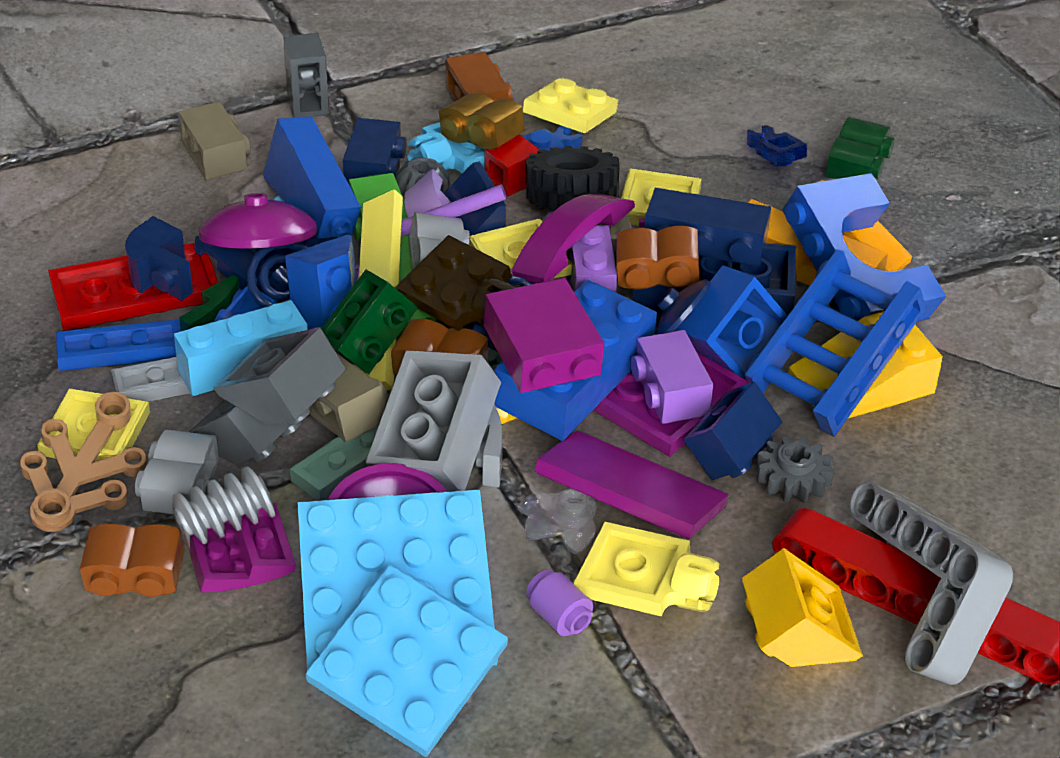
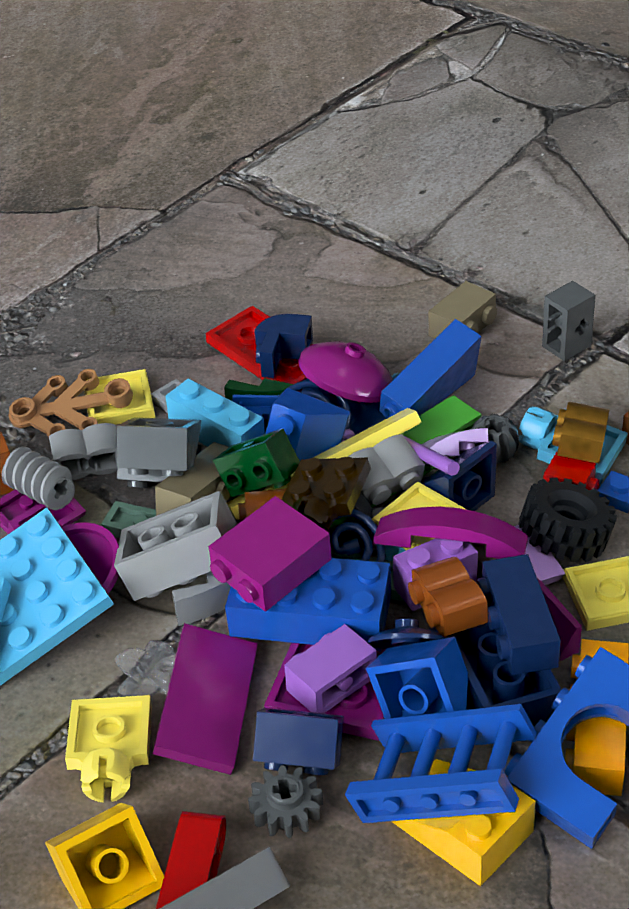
camera: 70 degrees right, 0 degrees up
(116, 345) = (198, 365): blue plate -> none
(374, 149) = (513, 395): dark blue brick -> none
(559, 602) = (49, 700): medium lavender brick -> none

